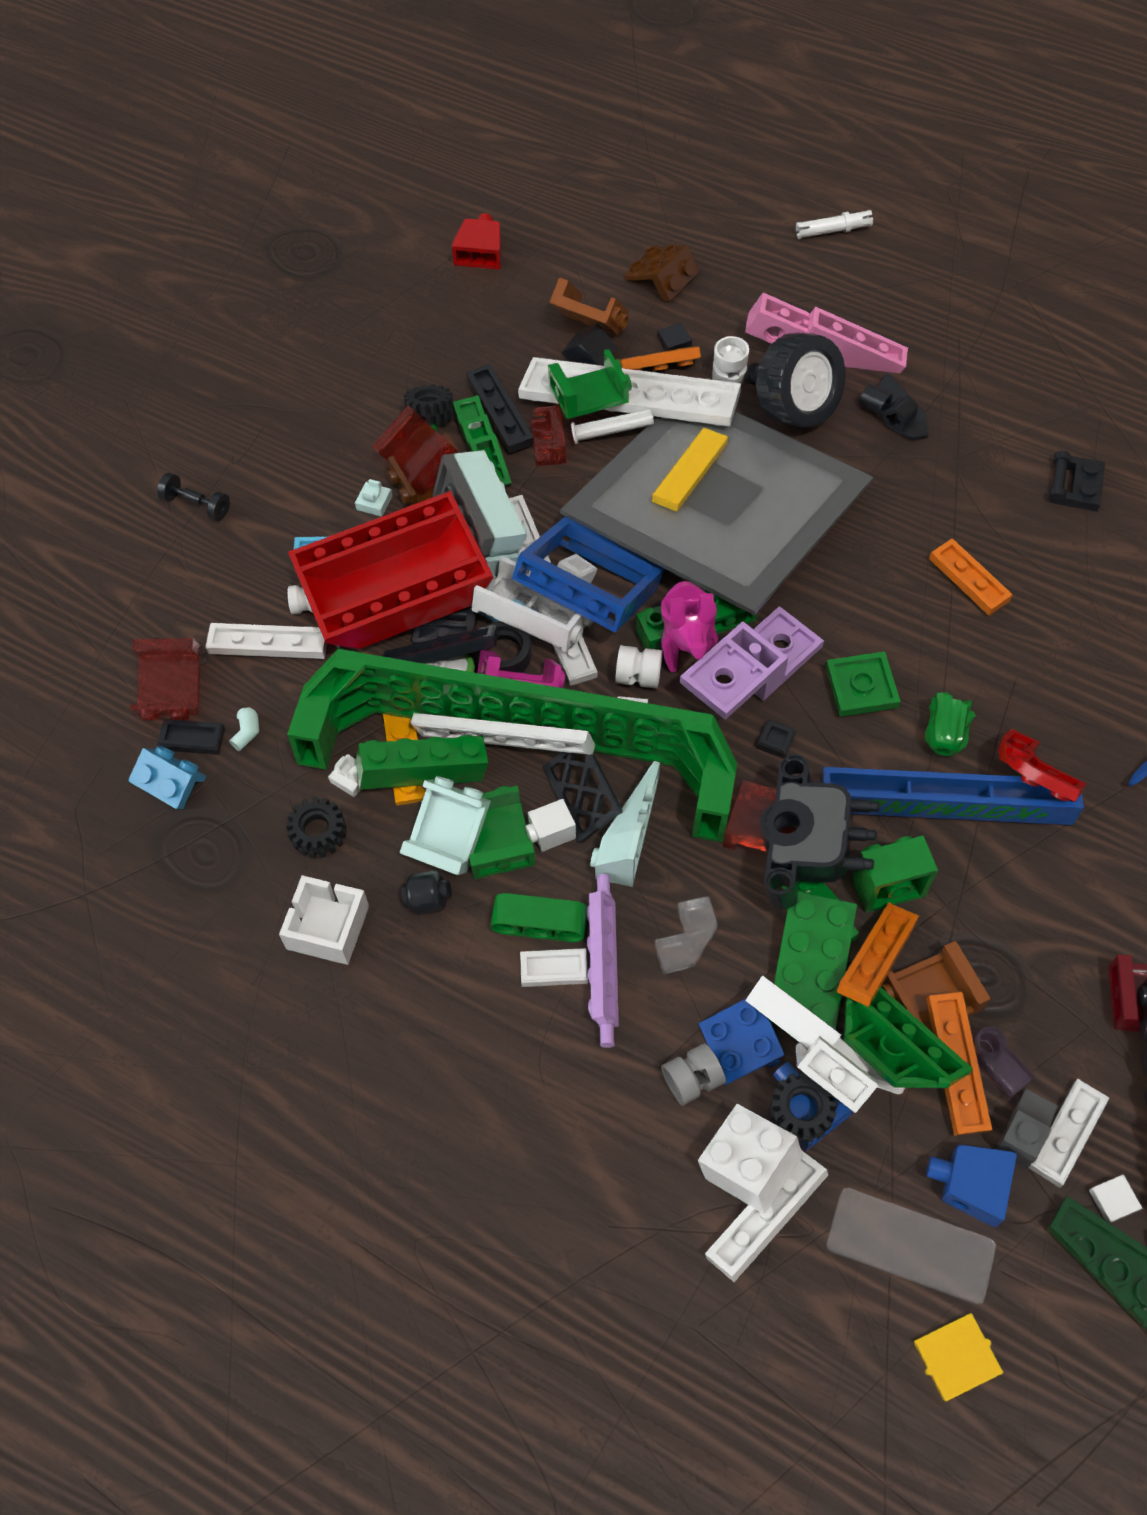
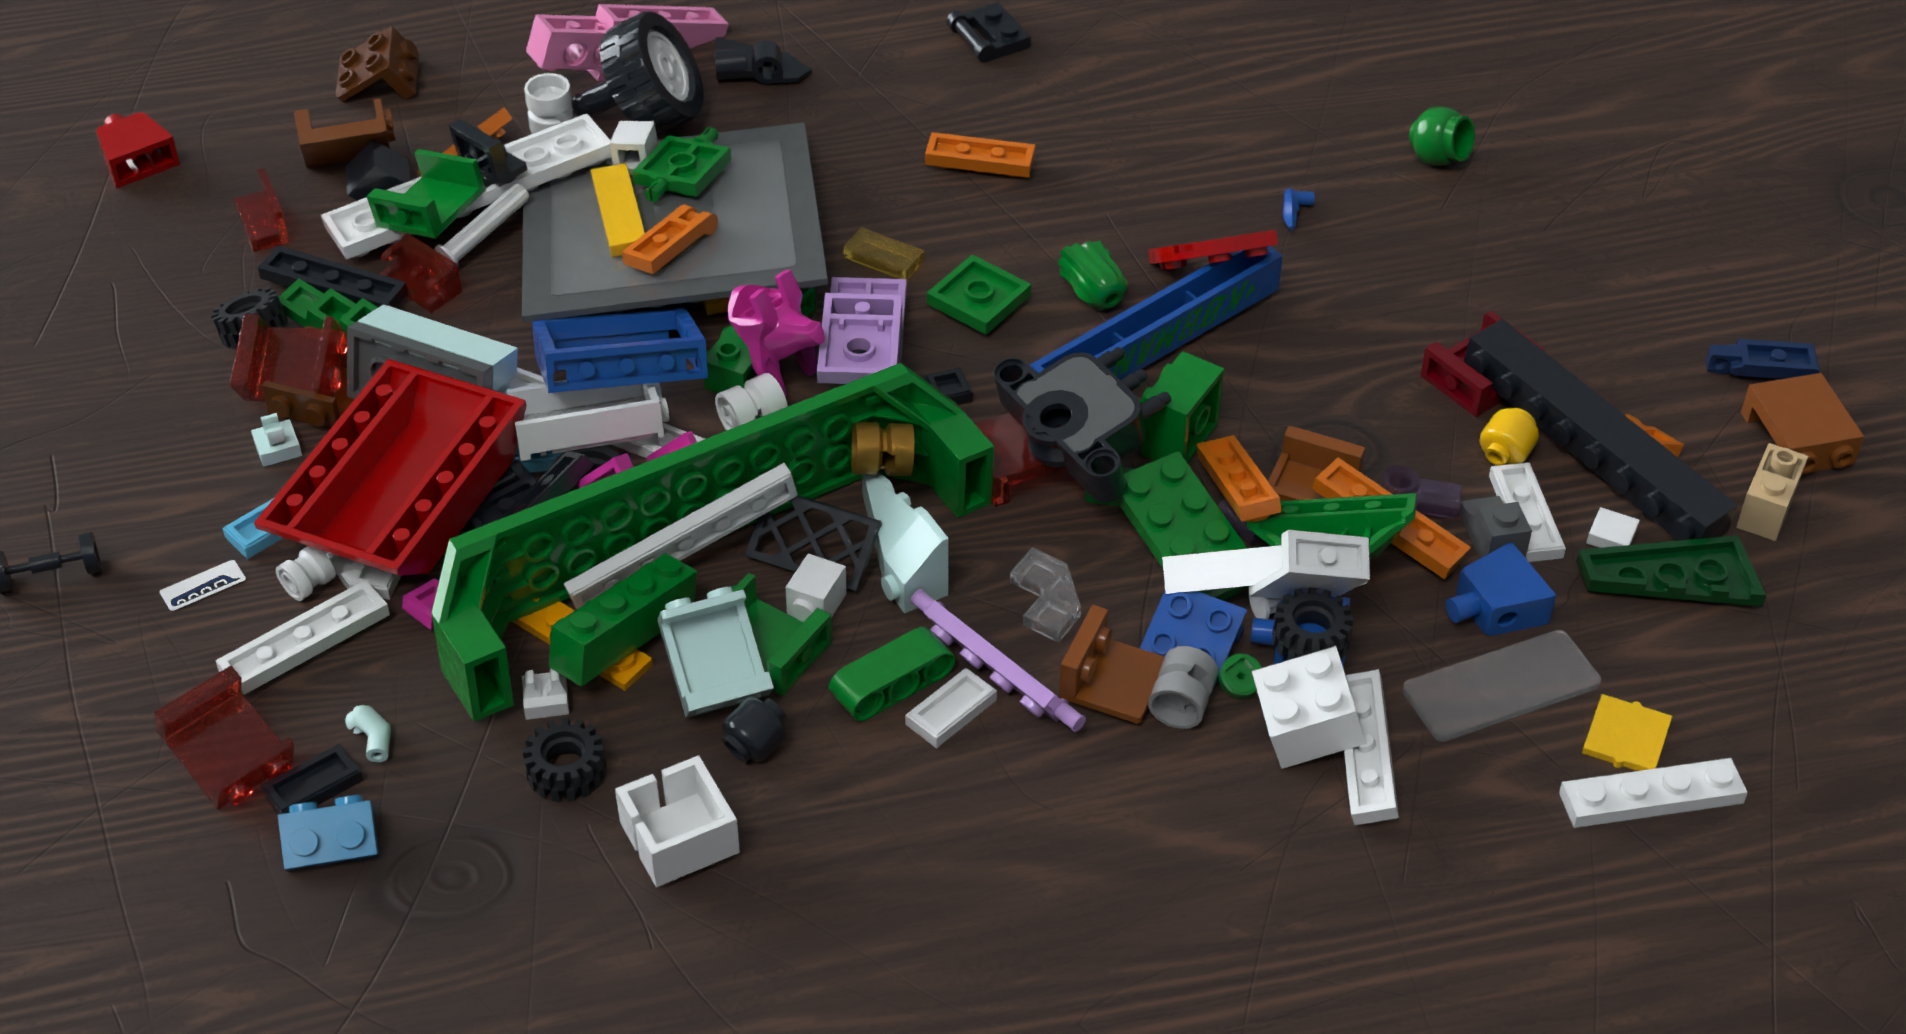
camera: 45 degrees left, 15 degrees down
(258, 566) = (202, 585): none -> white sticker
(505, 336) = (262, 216): none -> clear red panel
(646, 379) = (490, 153): none -> black bracket
(662, 762) = (882, 449): none -> pearl gold wheel
(663, 1023) = (1107, 672): none -> dark orange bracket
(674, 337) = (454, 113): black tile -> none
(692, 513) = (669, 238): none -> orange plate
(742, 1092) = (1237, 676): none -> green tile
(744, 428) = (632, 143): none -> white brick
(758, 461) = (682, 165): none -> green plate
(834, 609) = (883, 253): none -> clear yellow tile
(928, 1416) = (1652, 792): none -> white plate
(1111, 1069) = (1510, 436): none -> yellow head

